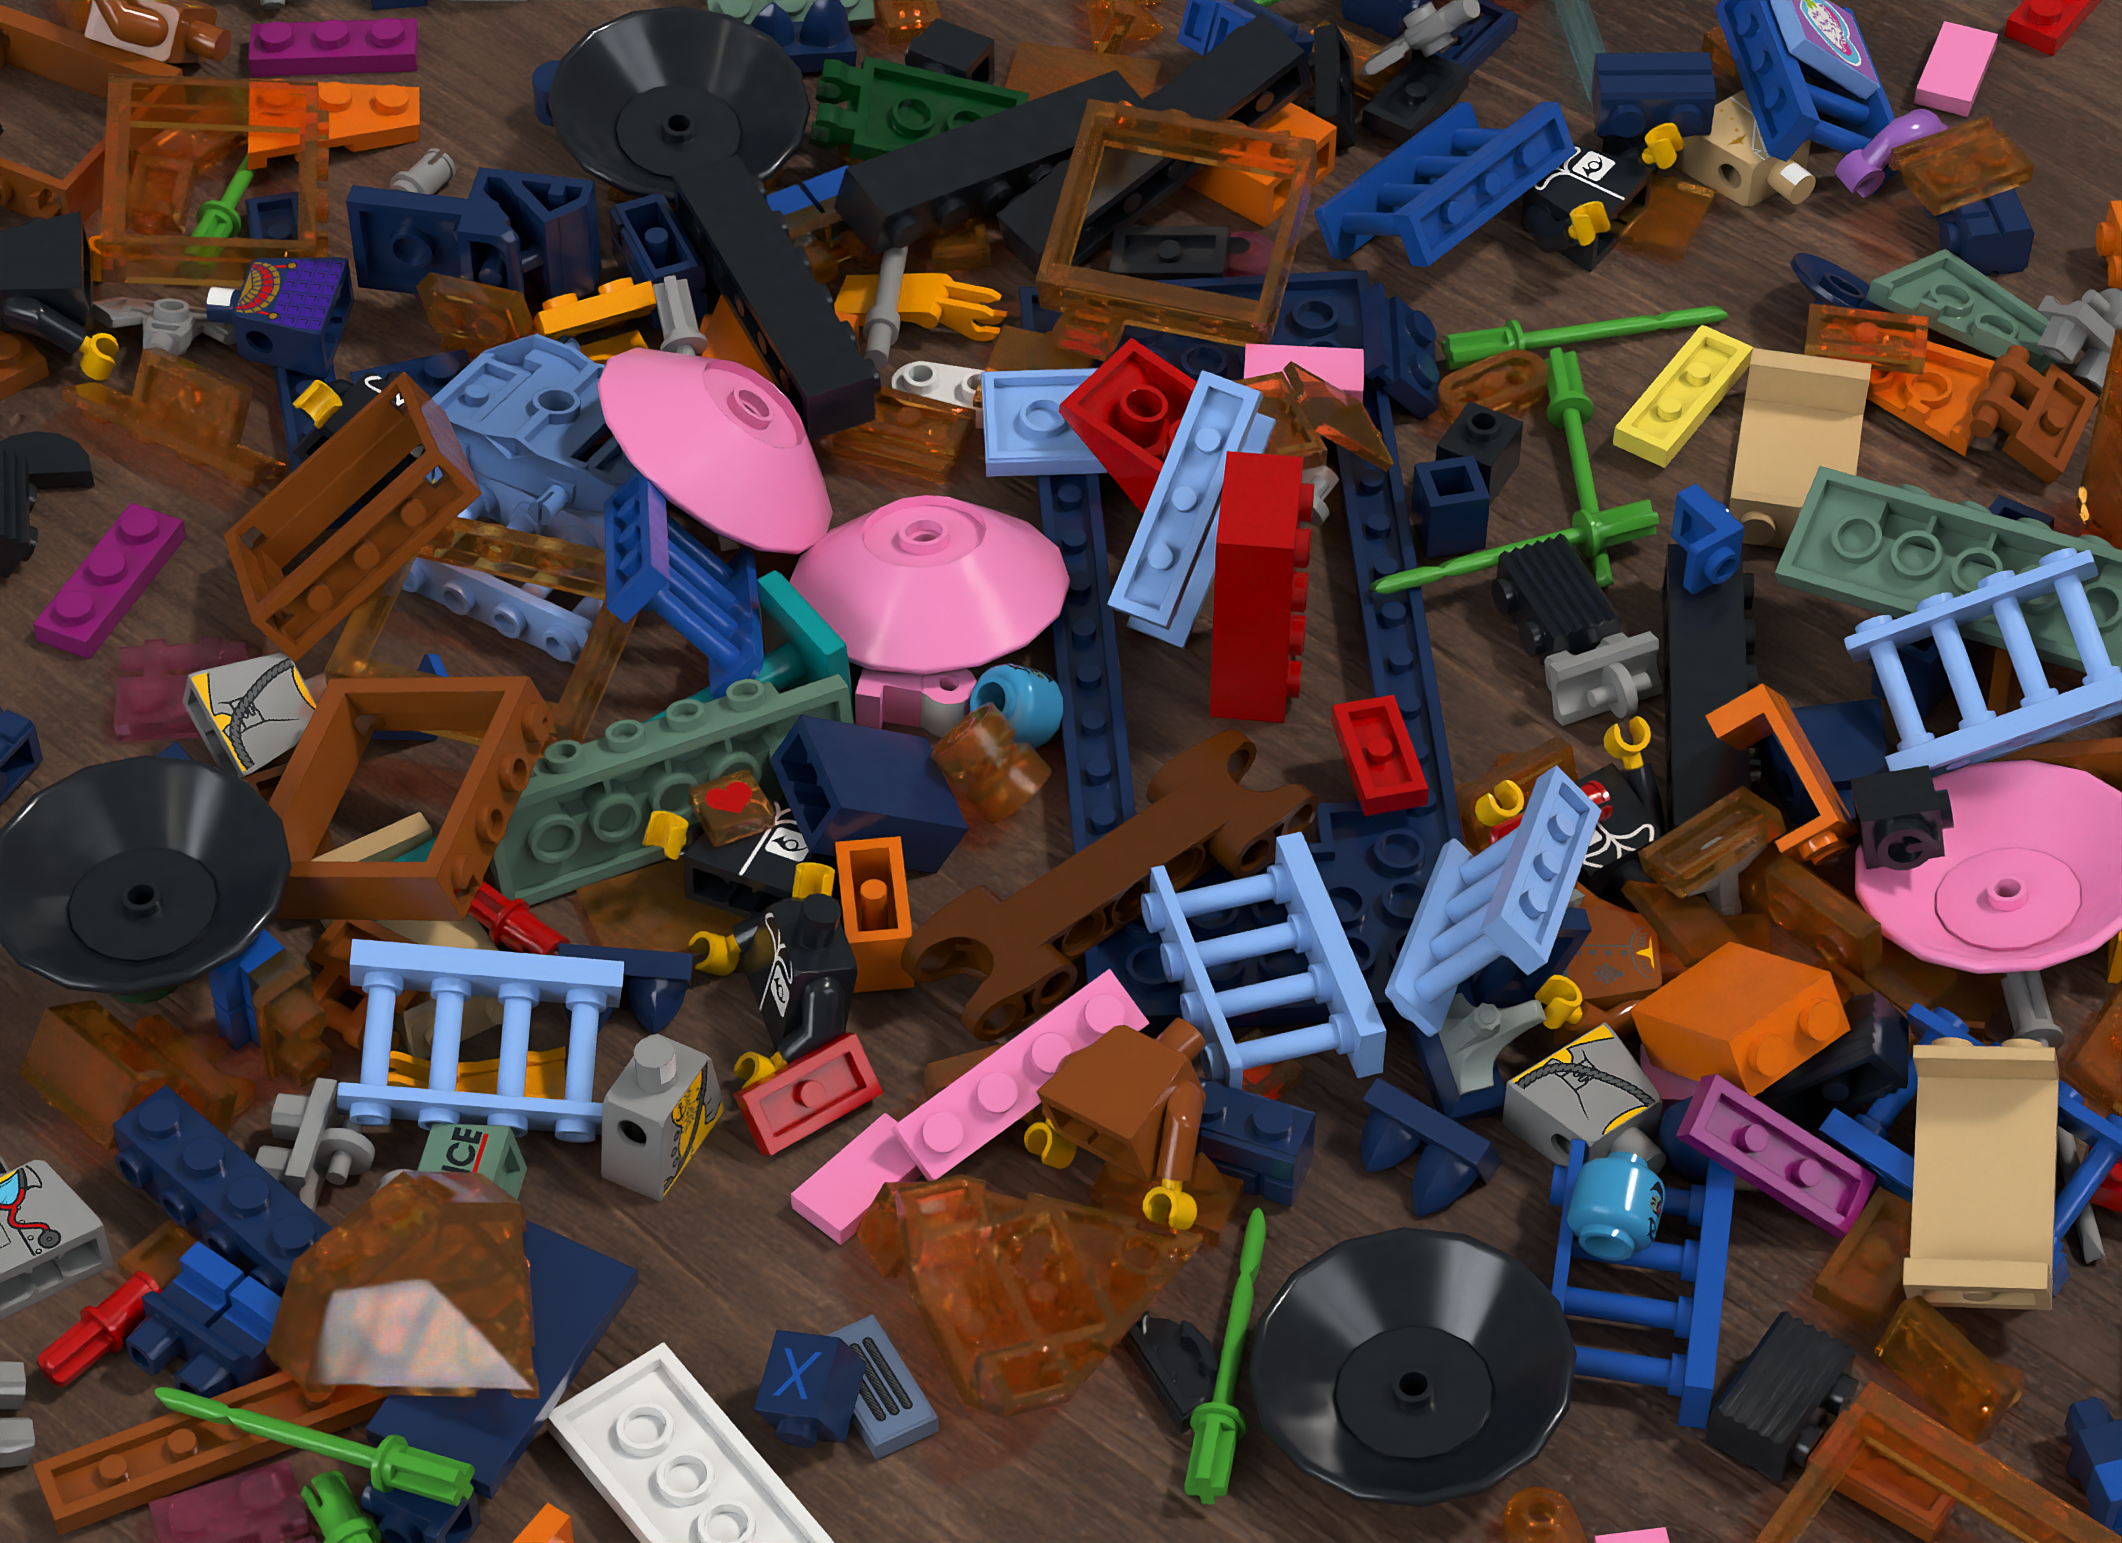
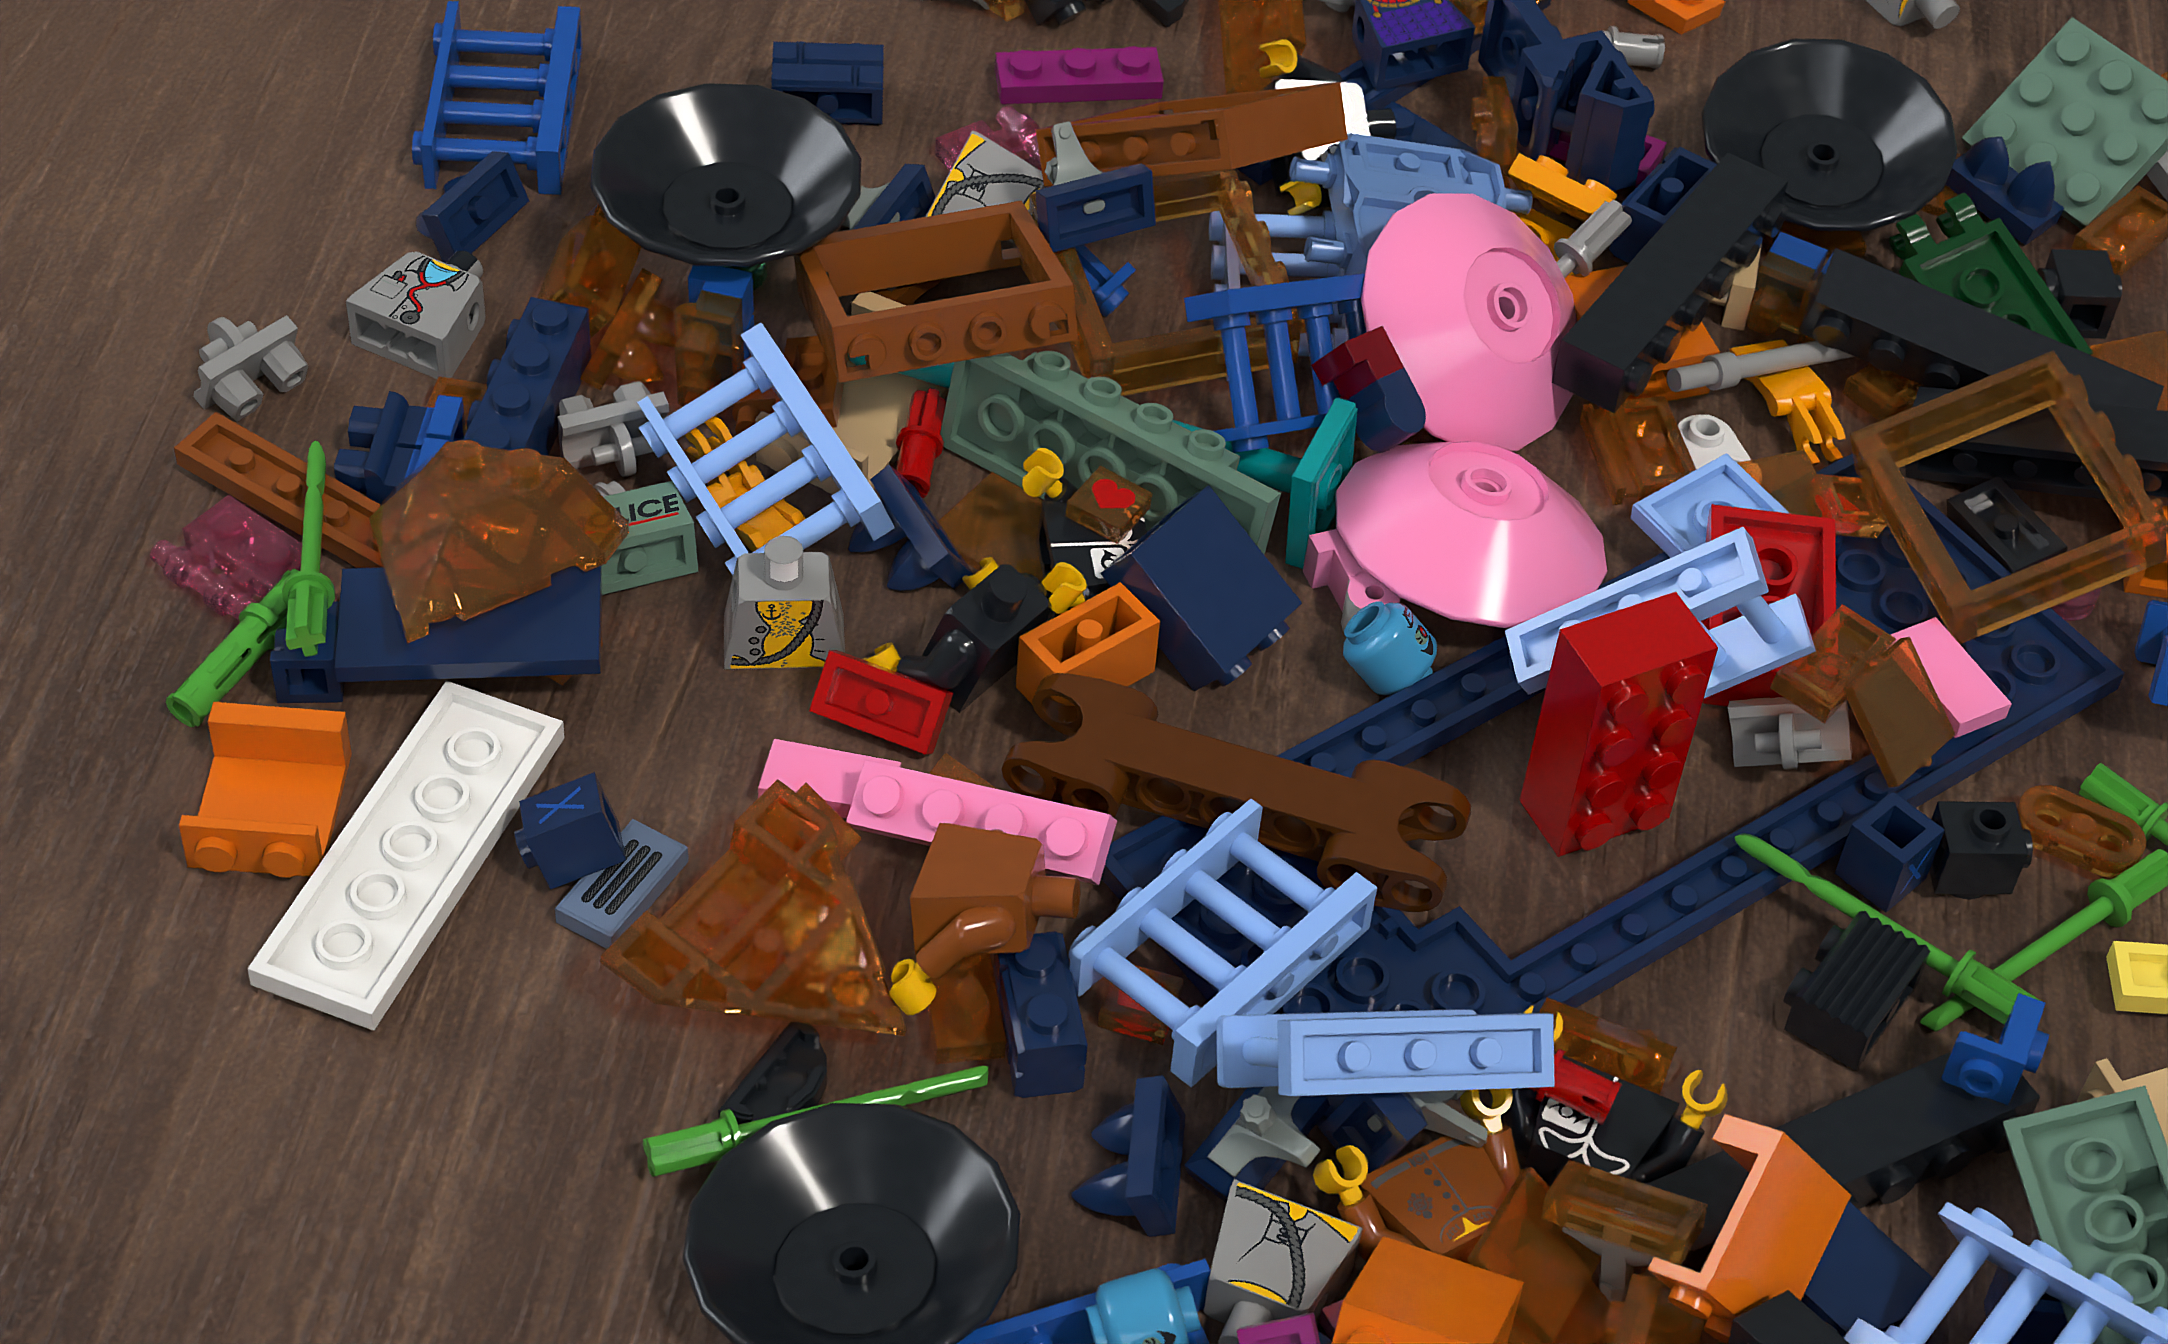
camera: 55 degrees right, 0 degrees up
(97, 1332) = (347, 391): red axle -> none
(389, 625) = (1087, 202): none -> dark blue piece
(749, 549) = (1375, 379): none -> leg
(1011, 769) = (1306, 654): clear orange wheel -> none
(1379, 755) = (1538, 920): red plate -> none
(1400, 350) = (2048, 736): dark blue plate -> none
(1604, 678) = (1797, 1063): light grey hips -> none

